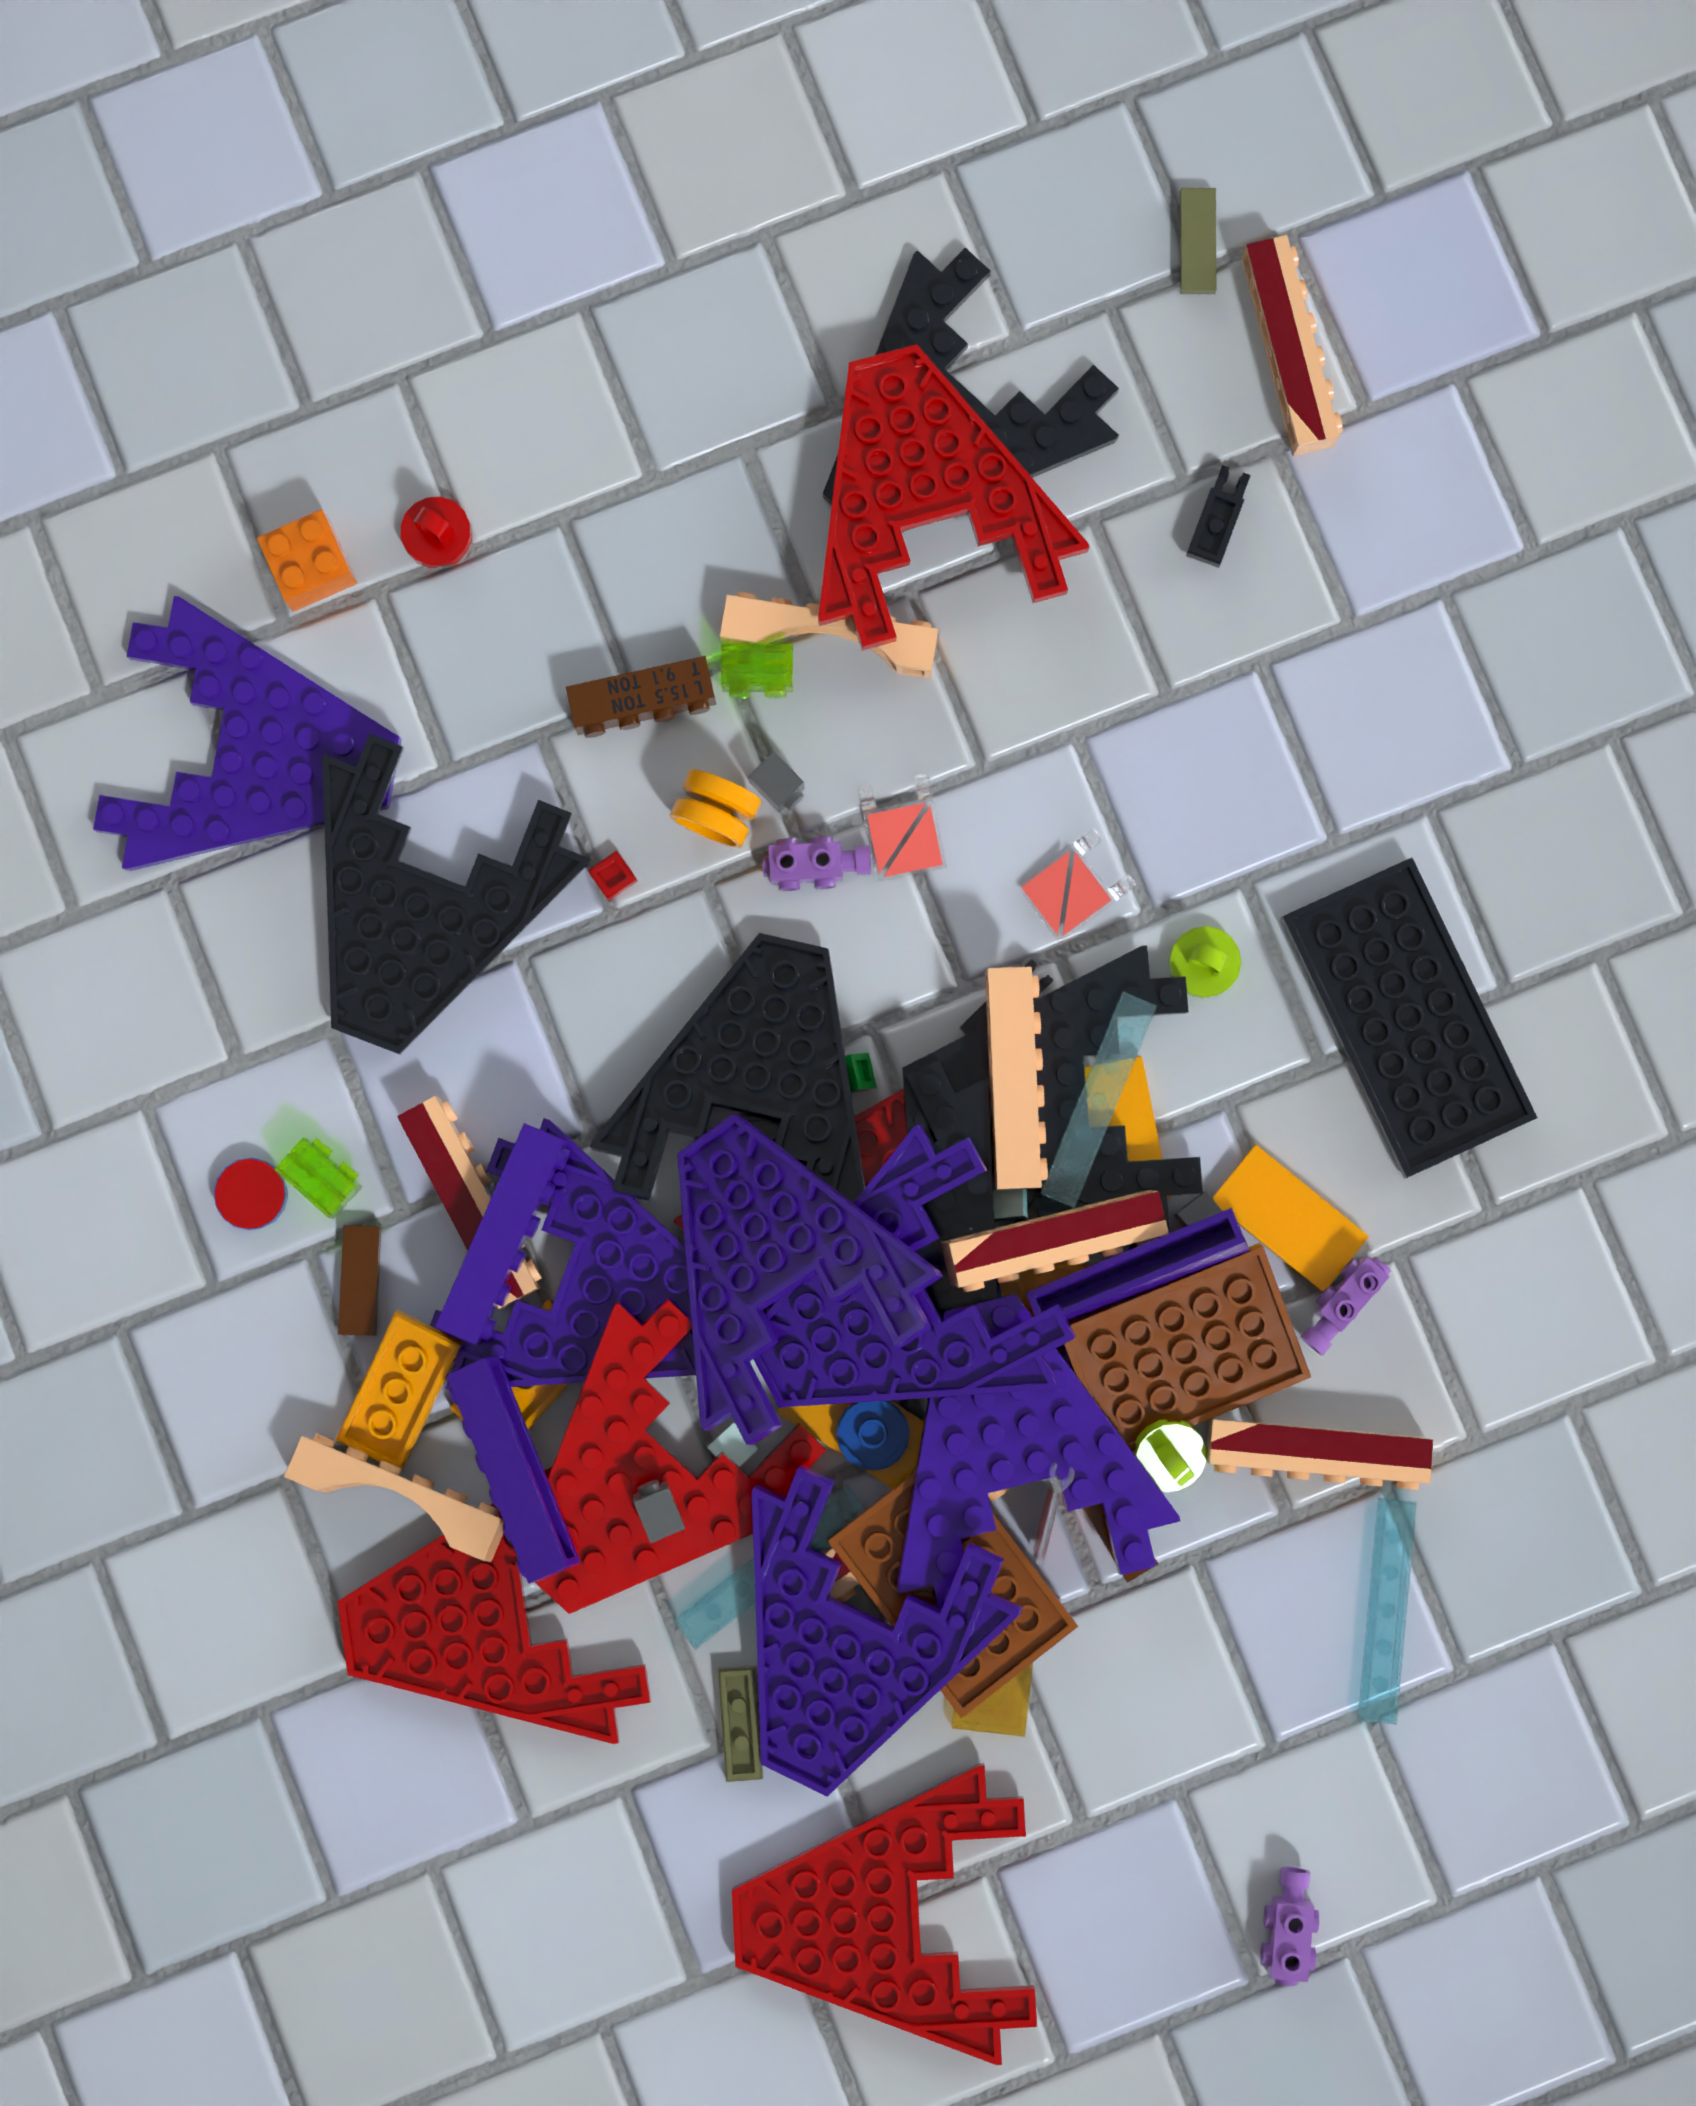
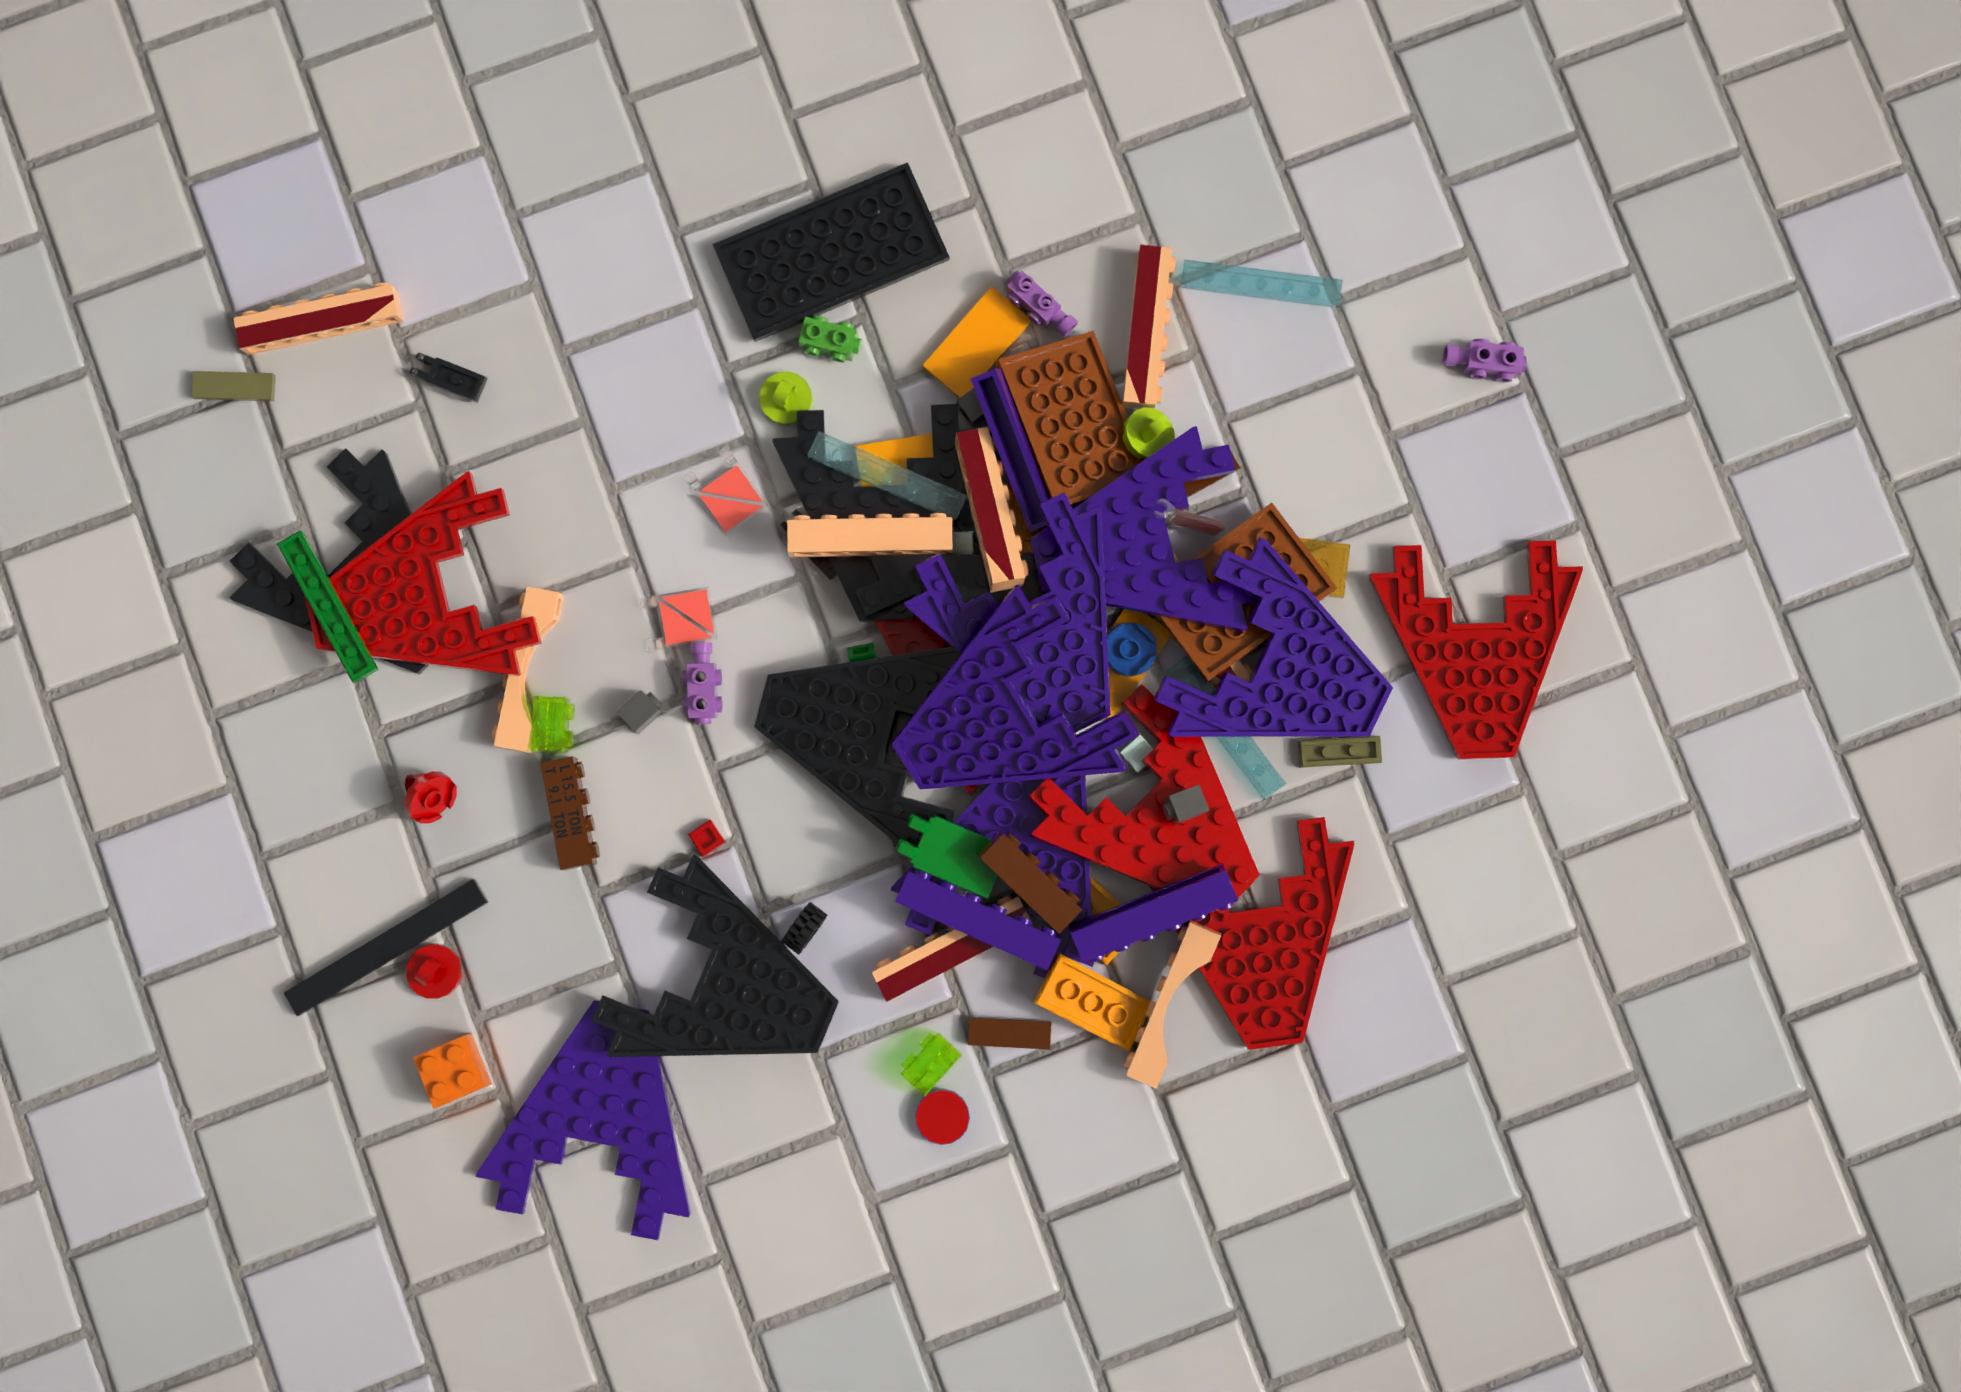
camera: 90 degrees left, 0 degrees up
(466, 471) = (386, 947): none -> black tile
(493, 1005) = (804, 928): none -> black tyre
(552, 1303) = (1029, 881): none -> reddish brown brick
(590, 1201) = (950, 854): none -> green tile
(661, 514) = (428, 795): none -> red tile
(715, 808) = (658, 756): light orange wheel -> none
(903, 373) = (327, 606): none -> green tile
(1285, 1027) = (835, 340): none -> bright green brick

